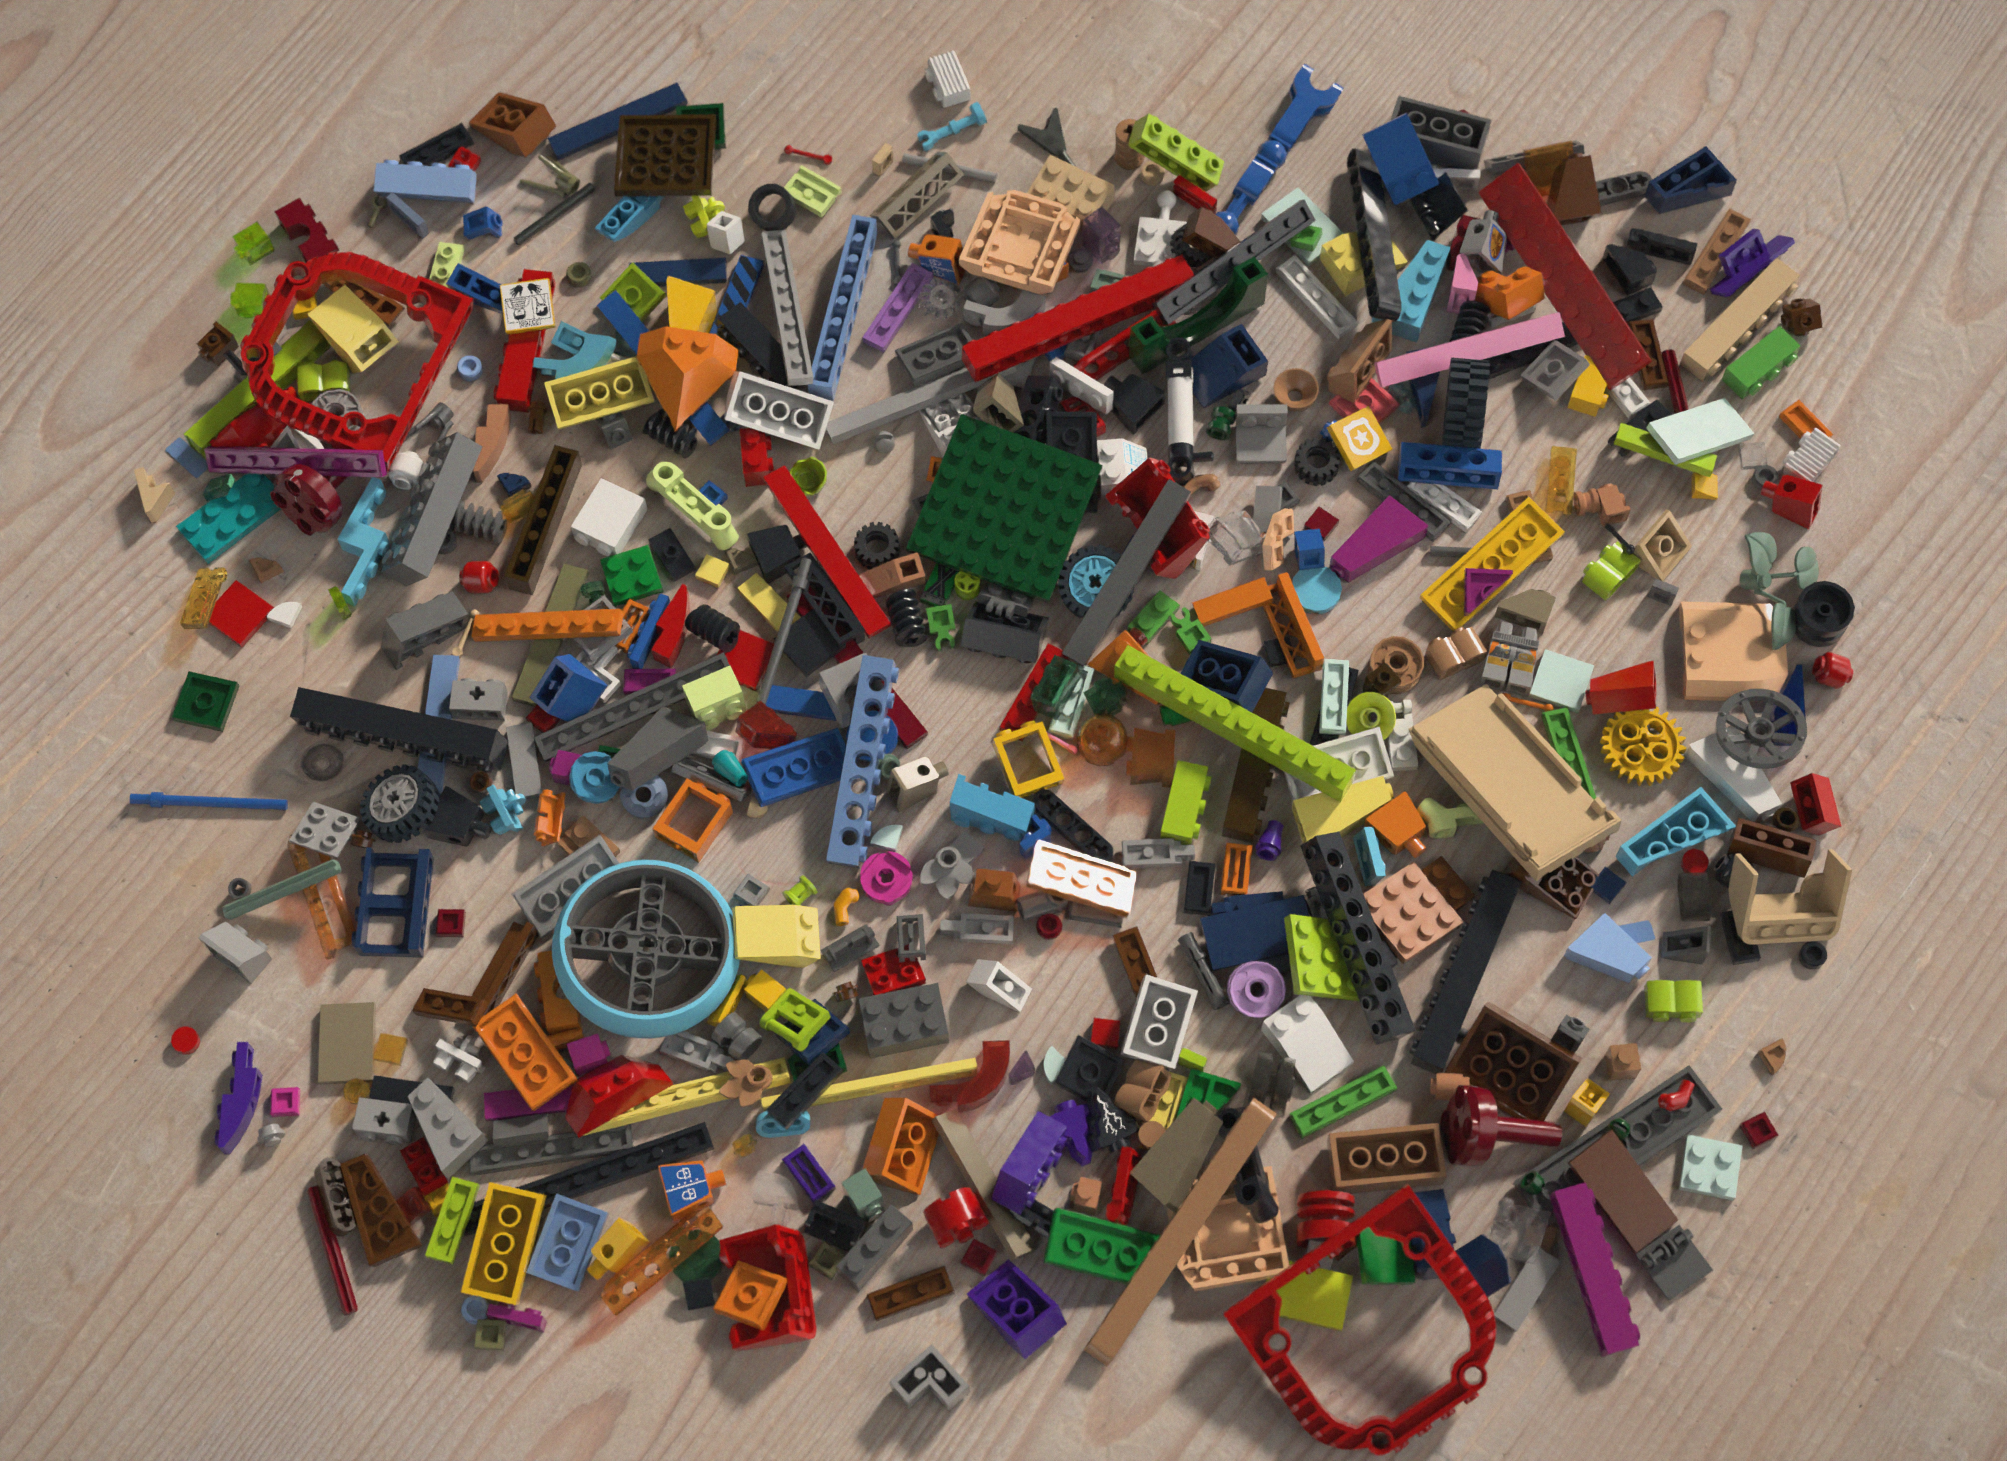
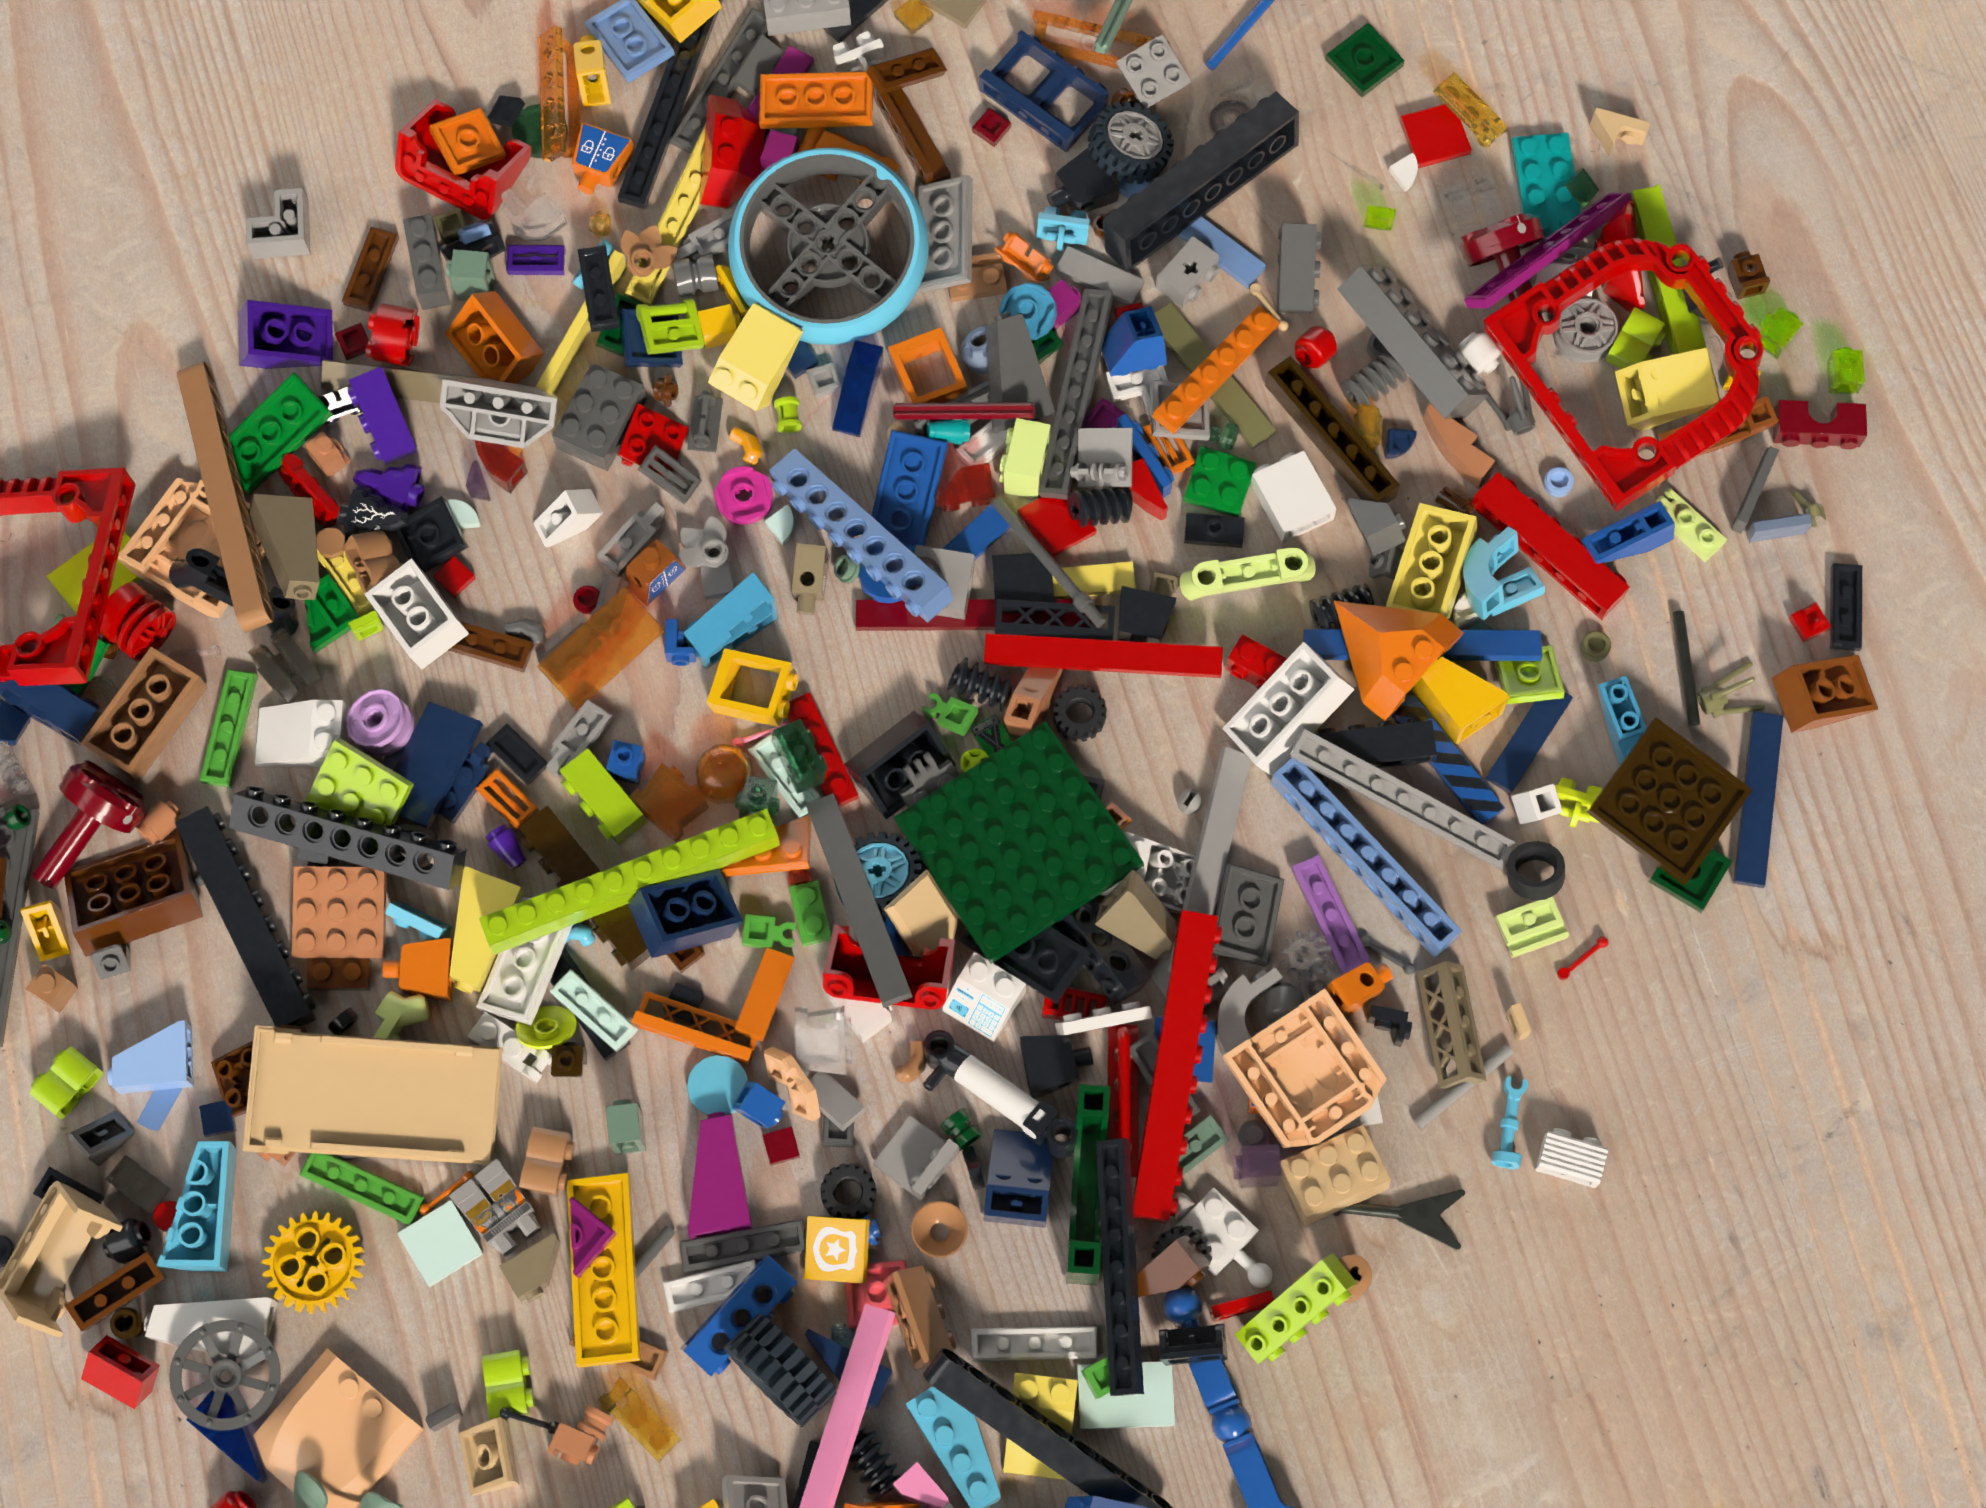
camera: 125 degrees right, 5 degrees up
(187, 457) = (1640, 183): medium blue sticker -> none
(265, 568) = (1467, 183): medium nougat tile -> none
(364, 541) = (1427, 274): medium azure bracket -> none
(390, 244) = (1754, 489): none -> dark grey tile
(425, 182) = (1806, 565): light blue brick -> none
(482, 222) = (1719, 592): blue bracket -> none
(527, 306) = (1577, 556): tile -> none
(594, 445) = (1377, 524): none -> dark grey slope
(675, 645) = (1104, 457): none -> light grey hinge
(712, 571) = (1169, 554): light yellow tile -> none
(712, 757) = (976, 410): none -> dark red axle
(713, 493) = (1250, 604): blue tile -> none
(741, 858) = (858, 388): none -> clear blue slope
(809, 475) = (1200, 698): lime hair -> none
(824, 1228) = (473, 232): none -> medium blue tile
(957, 1075) = (498, 410): none -> light grey wedge
(1076, 824) = (662, 692): black beam -> none
(1102, 950) = (527, 627): none -> dark grey arm
(1103, 530) = (922, 915): none -> tan tile
(1148, 804) = (626, 762): none -> blue brick
(1198, 962) = (446, 698): dark grey pin -> none
(1245, 195) = (1193, 1344): none -> black hinge
(1394, 612) = (625, 1127): none -> sand green brick
(1401, 651) = (581, 1113): medium nougat wheel -> none
(1477, 851) = (343, 1021): none -> black tile
(1624, 690) = (374, 1287): red slope -> none

